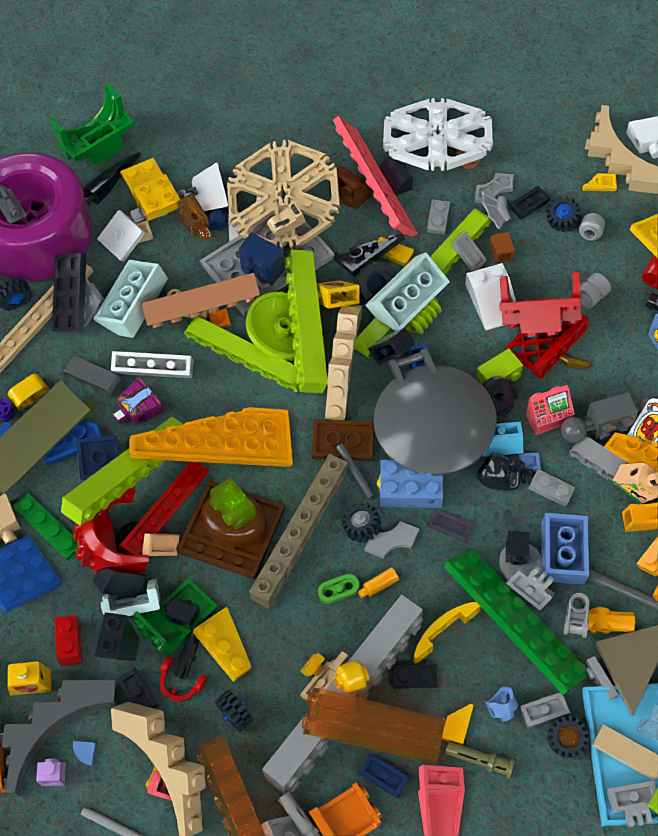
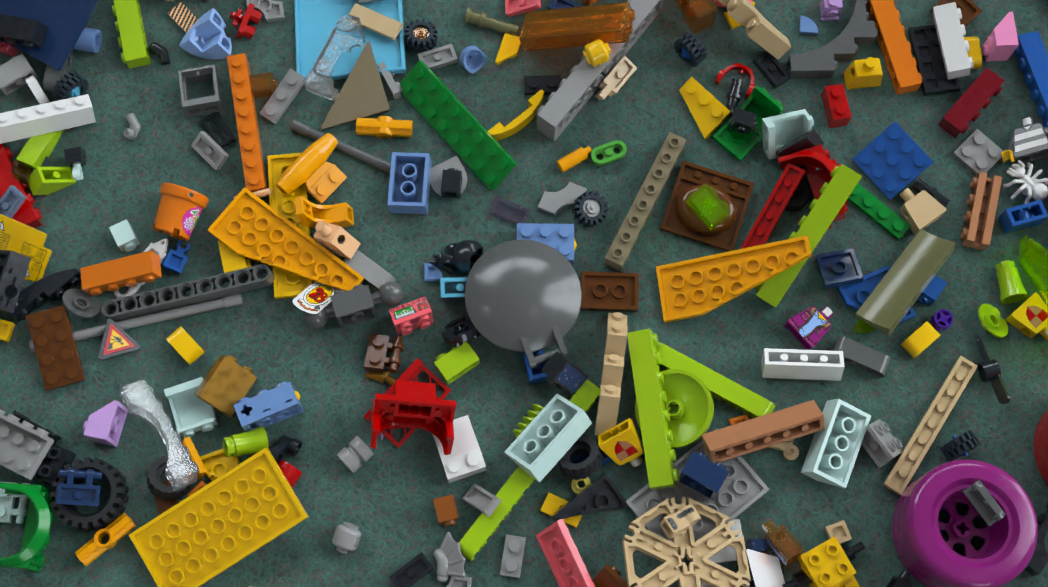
camera: 175 degrees right, 10 degrees up
(69, 293) = (901, 437): black plate -> none
(117, 638) = (794, 82): black slope -> none
(121, 235) = (859, 524): white plate -> none
(160, 544) = (768, 181): light nougat tile -> none
(313, 665) = (628, 89): yellow plate -> none
(355, 471) = (597, 258): dark grey bar -> none
(532, 586) = (441, 150): light grey hinge -> none
(551, 488) = (415, 246): light grey plate -> none
(563, 213) = (375, 553): black wheel -> none
(577, 619) = (405, 117): light grey piece -> none
(581, 378) = (377, 352): none -> reddish brown plate

